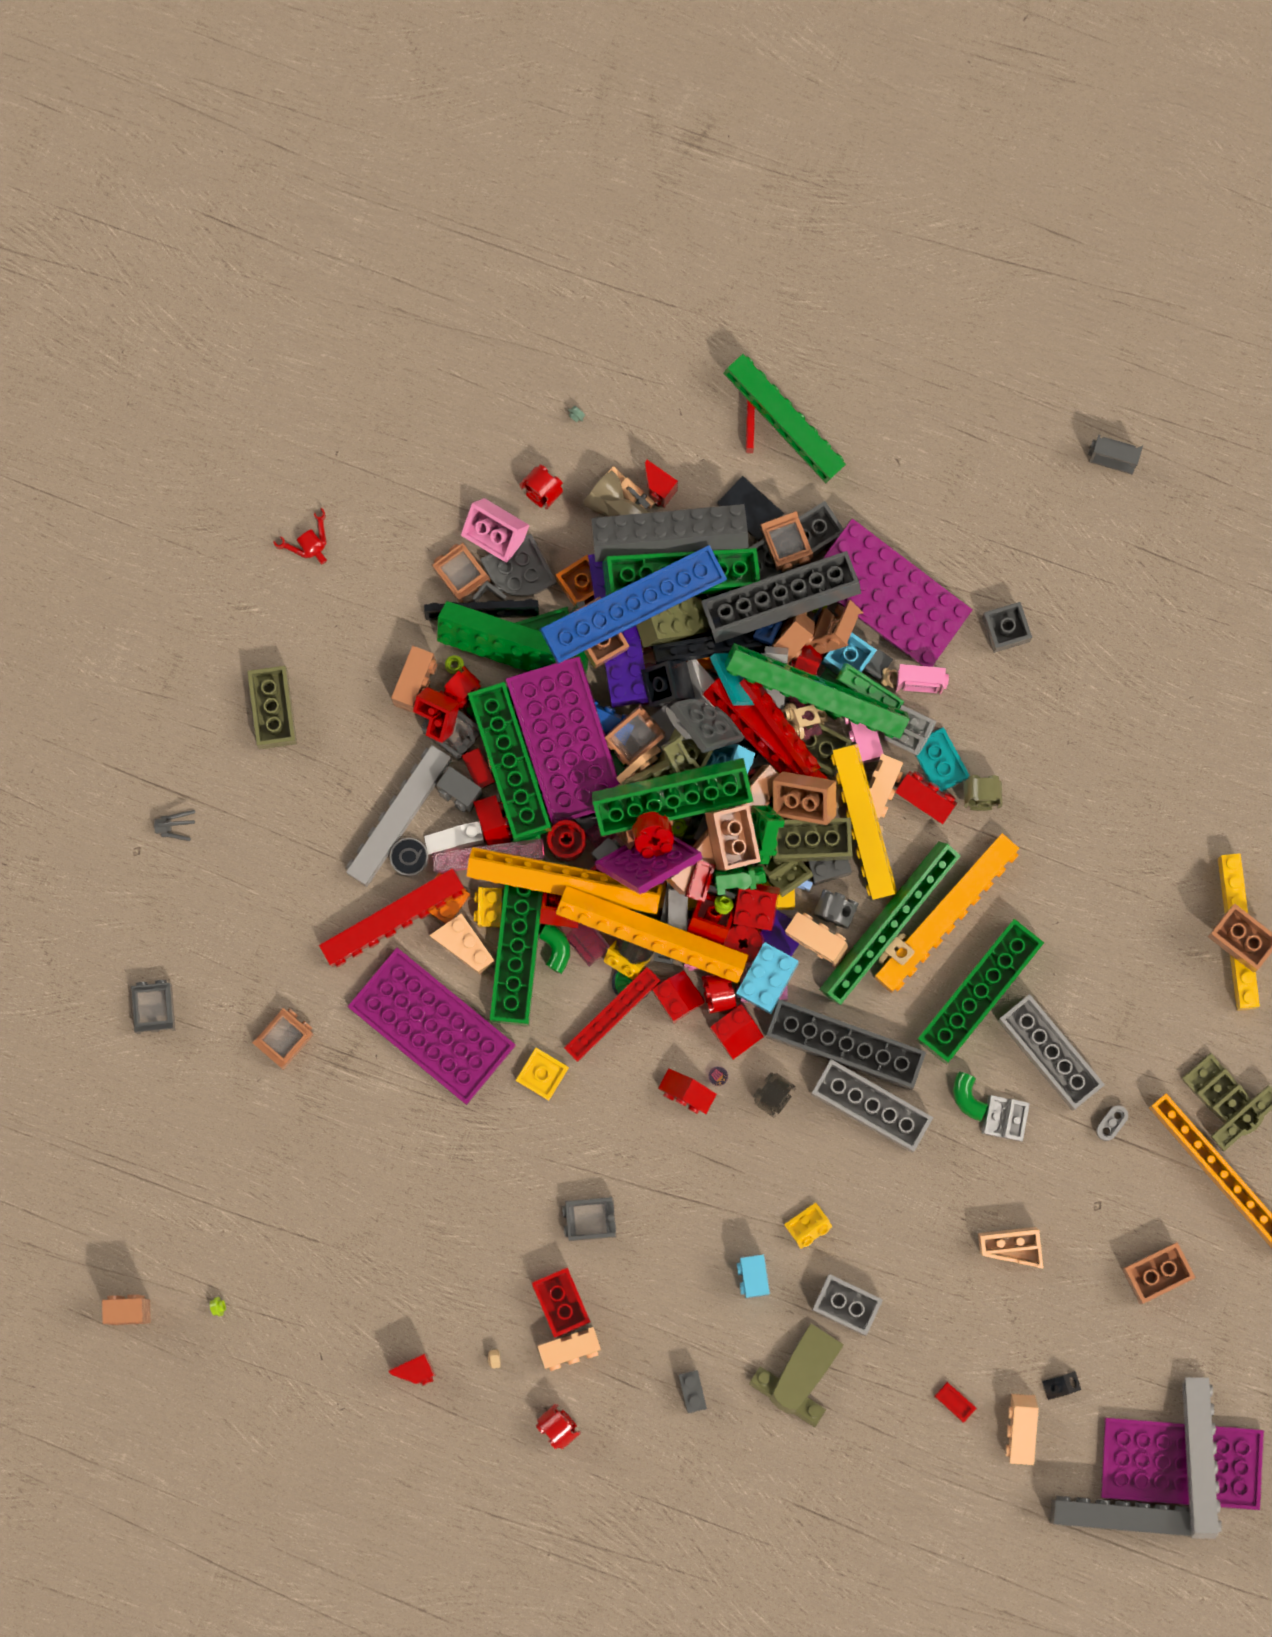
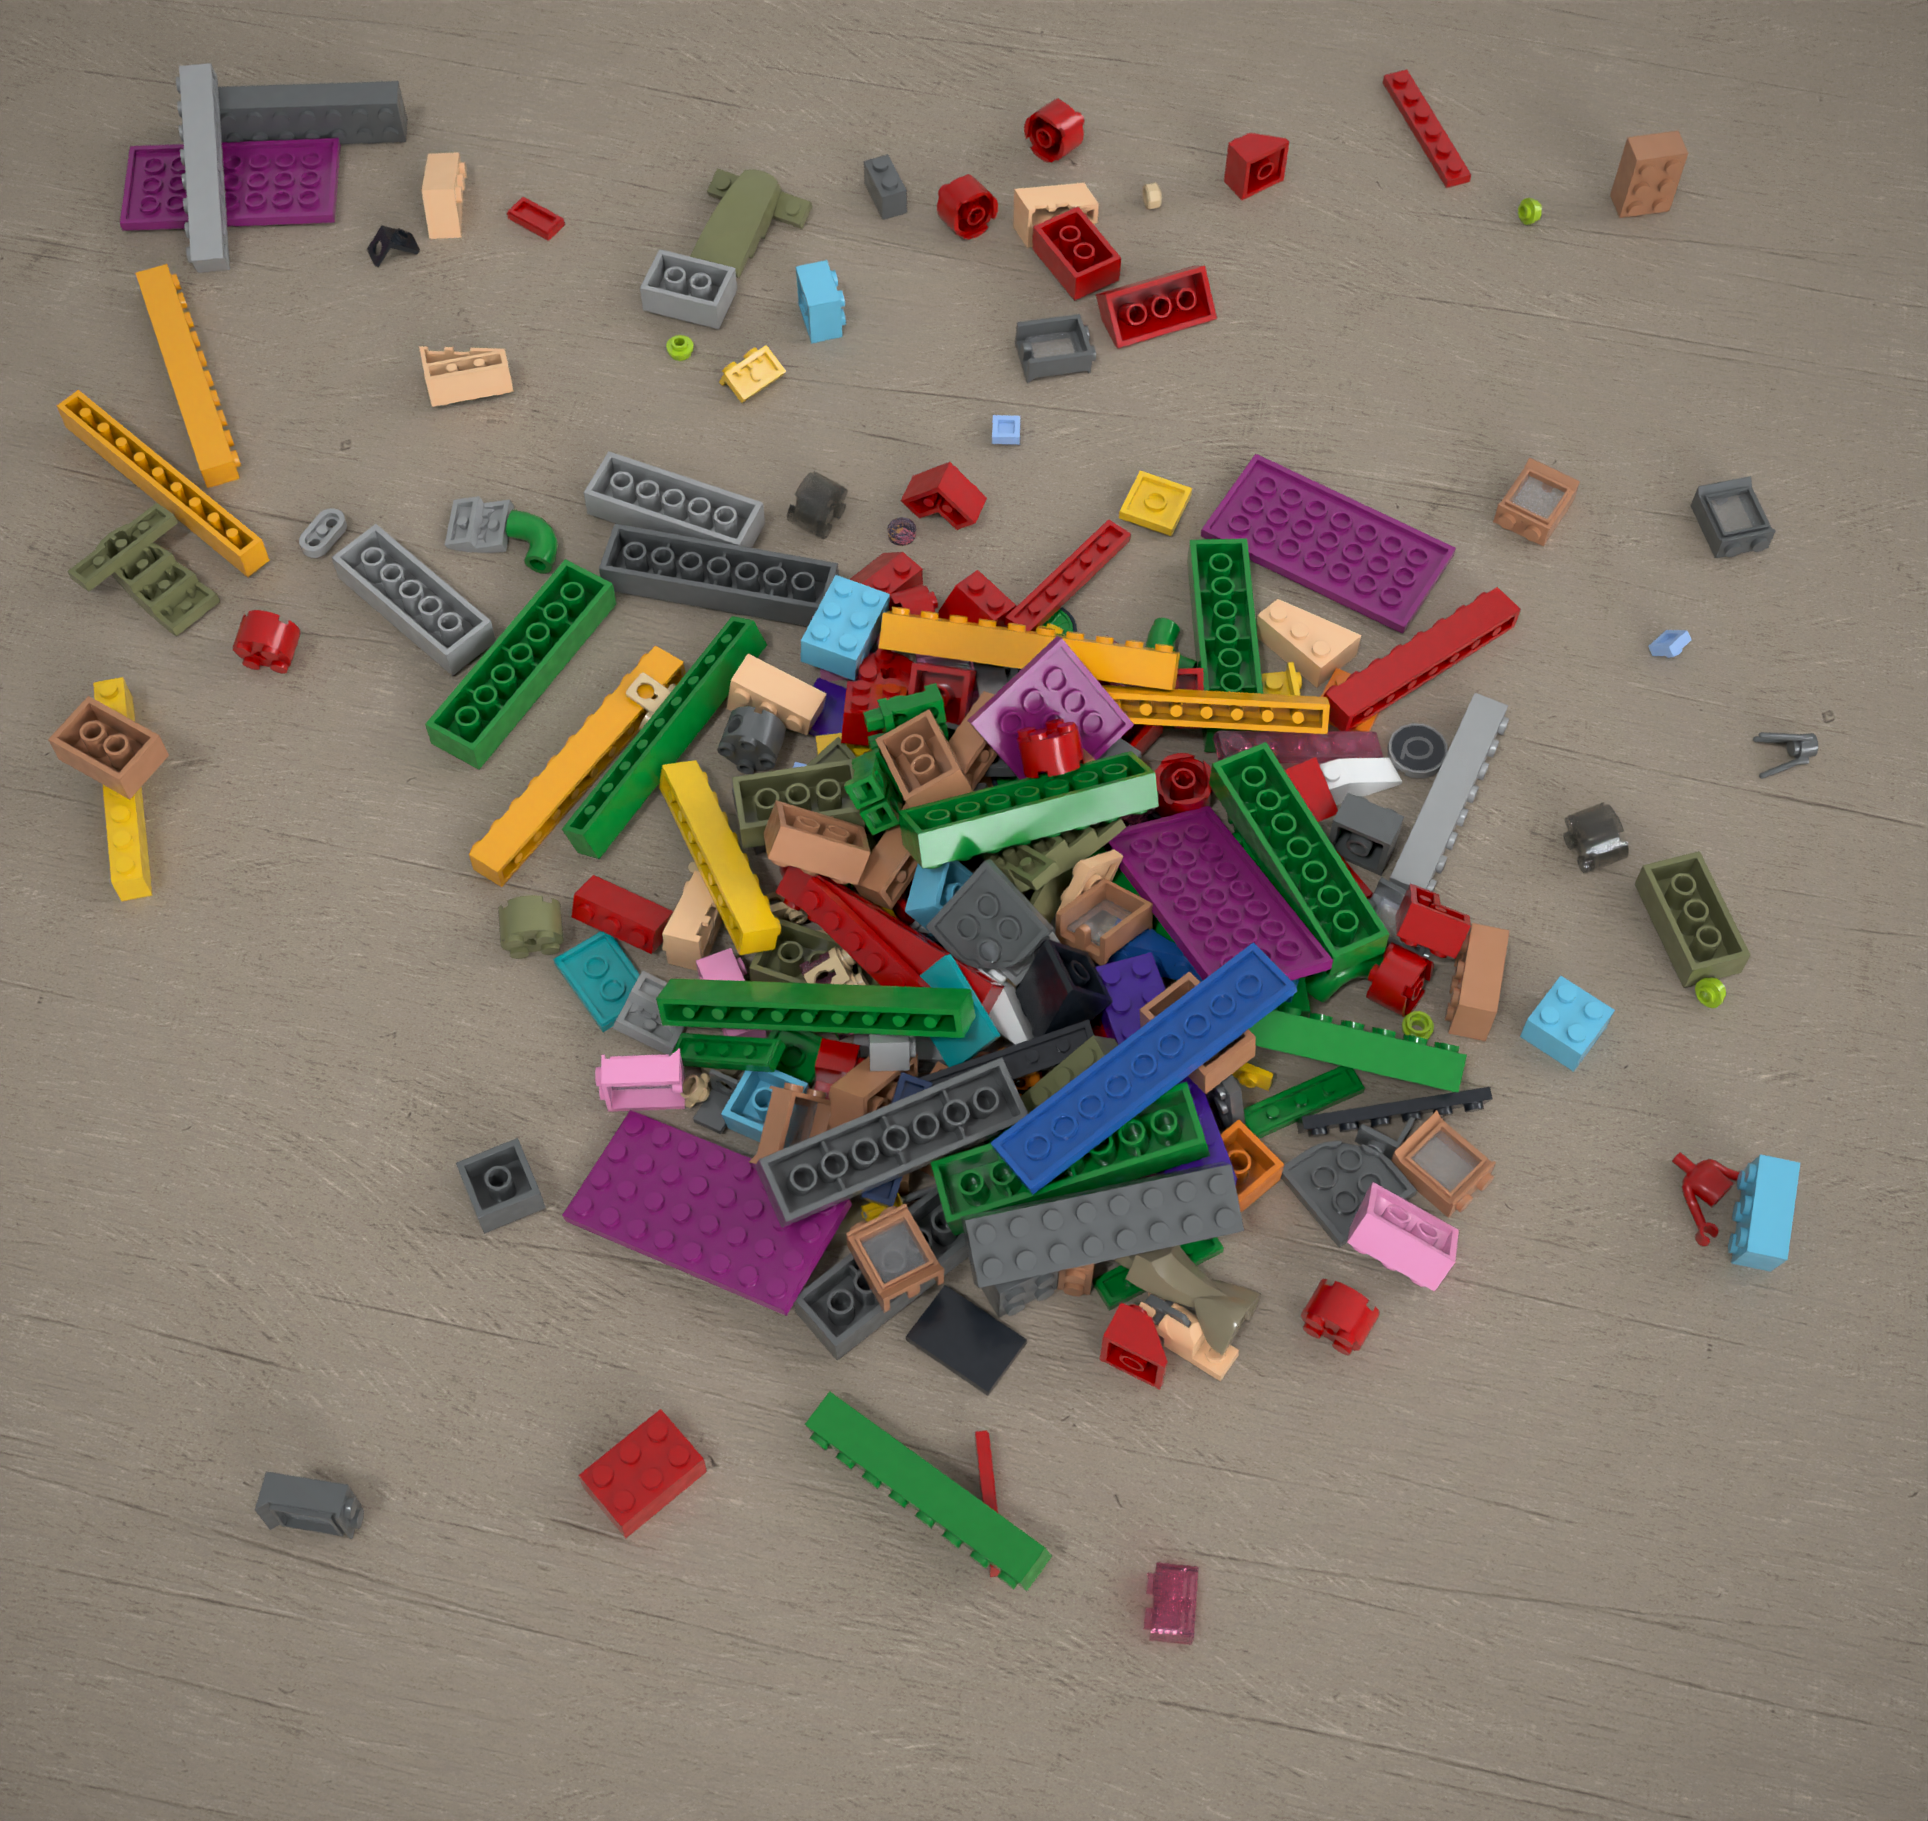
camera: 170 degrees right, 20 degrees down
(225, 913) = (1670, 643): none -> light blue plate
(272, 1407) = (1426, 128): none -> red plate
(273, 660) = (1710, 992): none -> lime plate
(288, 511) = (1764, 1213): none -> medium azure brick
(315, 770) = (1595, 837): none -> clear smoke brick
(366, 651) = (1567, 1023): none -> medium azure brick
(510, 1250) = (1157, 305): none -> red slope
(576, 414) = (1304, 1464): sand green plate -> none
(635, 1151) = (1006, 429): none -> light blue plate
(635, 1357) = (966, 206): none -> red brick
(661, 349) = (1173, 1603): none -> clear pink brick
(700, 880) = (965, 702): tile -> none
(862, 1255) = (680, 347): none -> lime plate
(935, 453) = (643, 1473): none -> red brick
(1148, 1028) = (266, 641): none -> red brick
(1158, 1273) = (257, 364): nougat brick -> none
(1209, 1277) = (187, 376): none -> light orange brick

